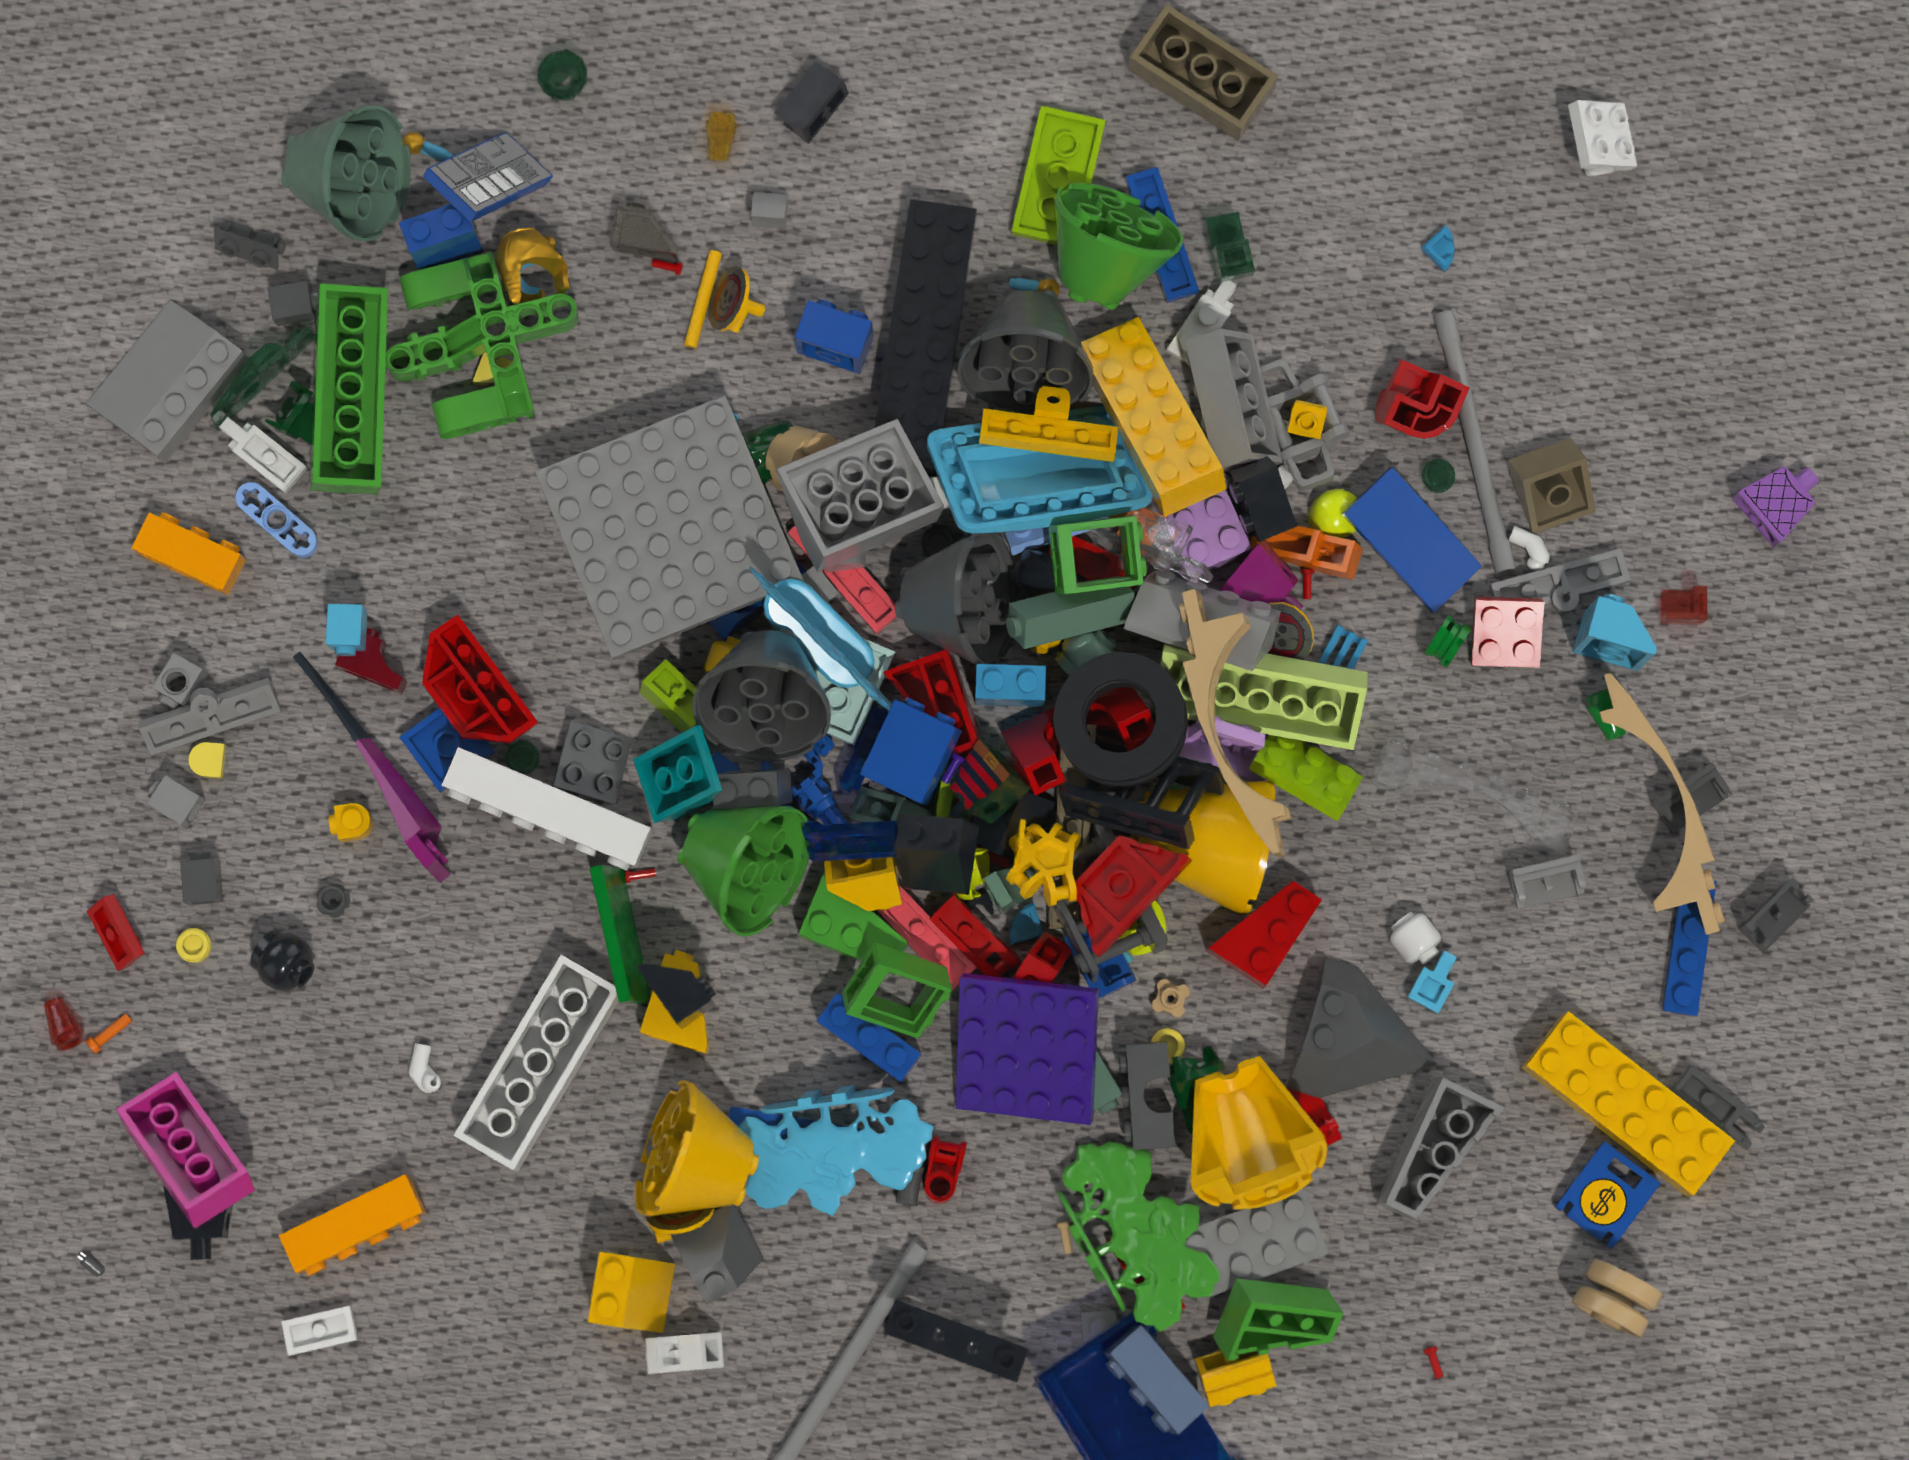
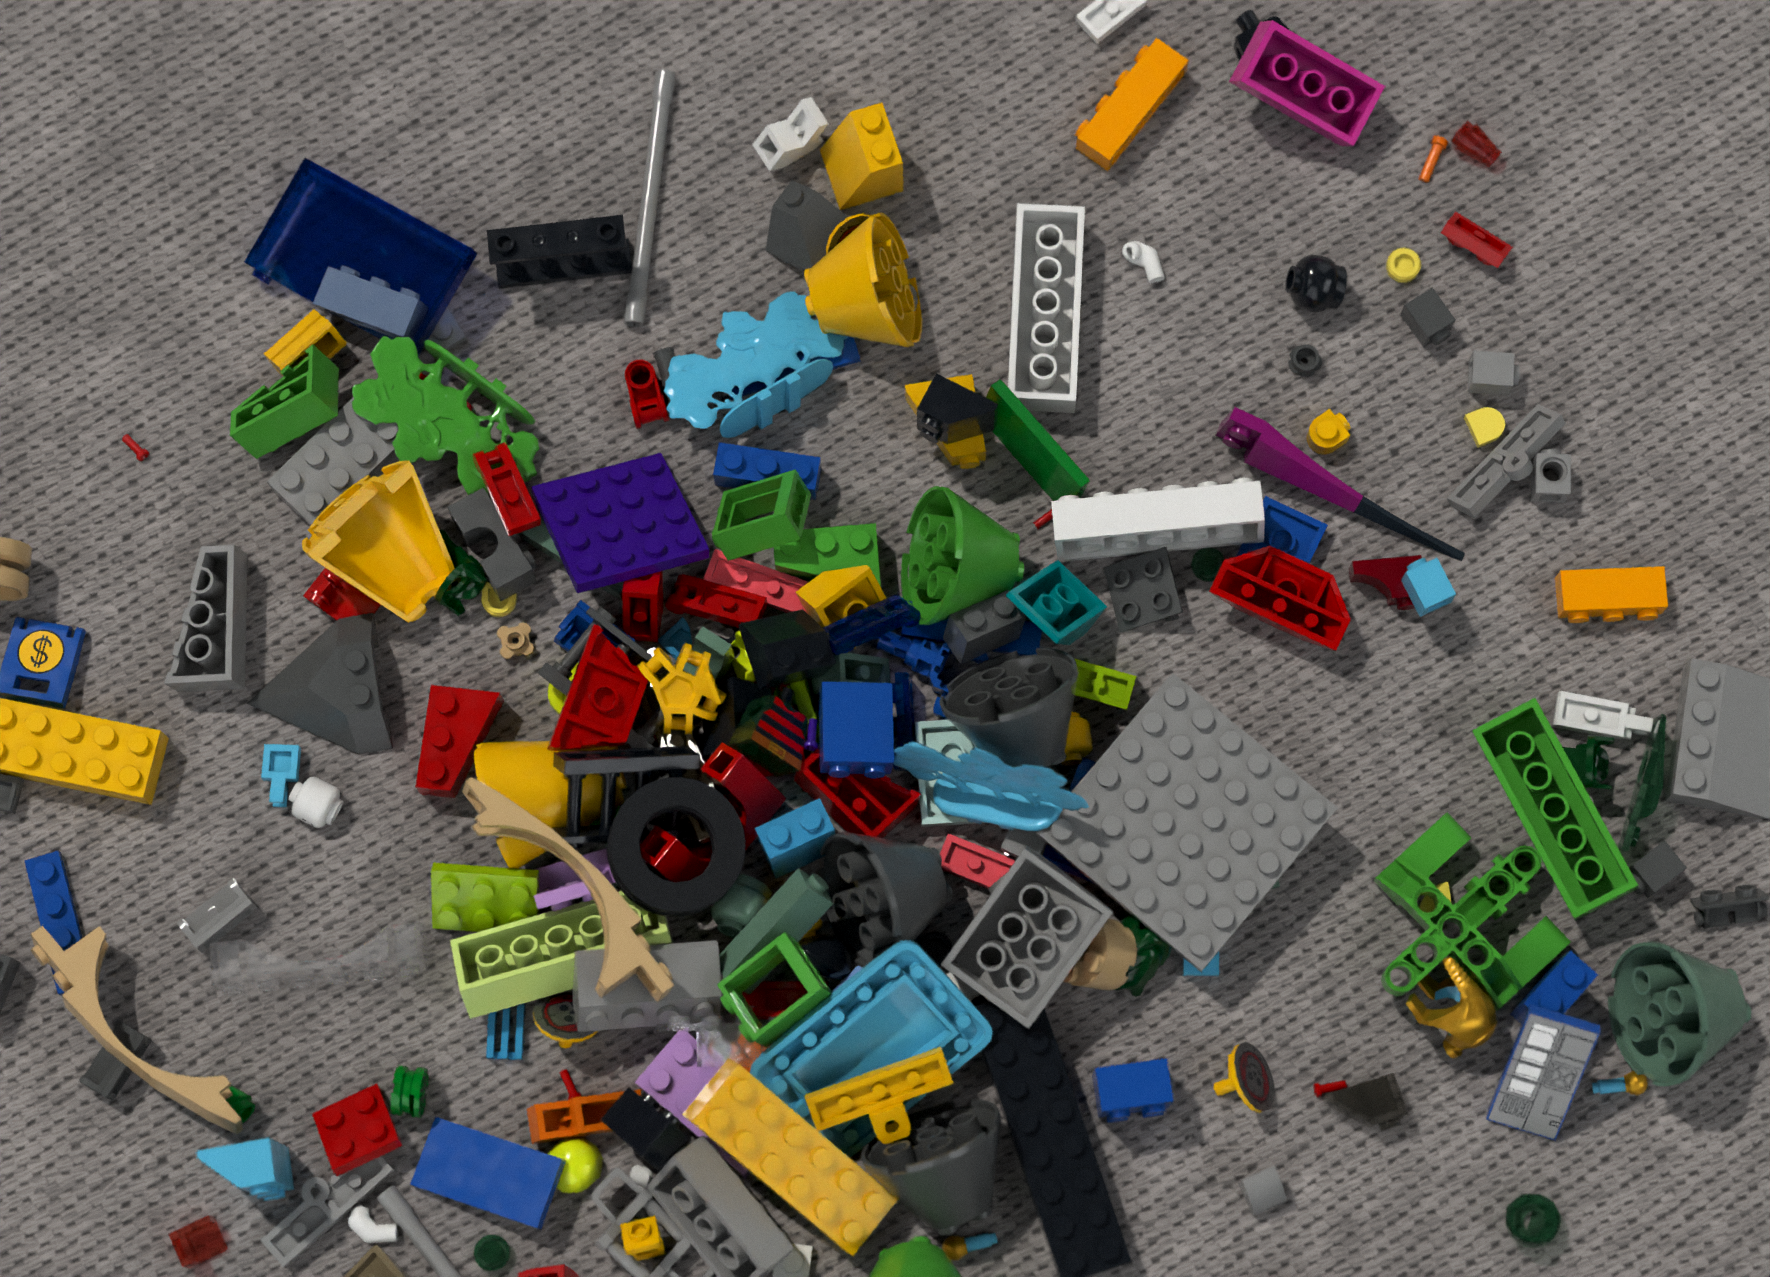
camera: 155 degrees right, 5 degrees down
(264, 497) = (1527, 651): light blue beam -> none
(702, 299) = (1278, 1071): yellow bar -> none
(720, 135) = (1349, 1240): clear yellow cone -> none
(1064, 1230) = (510, 393): tan piece -> none
(1113, 1132) = (507, 490): none -> red plate
(1263, 578) = (610, 1058): magenta torso -> none

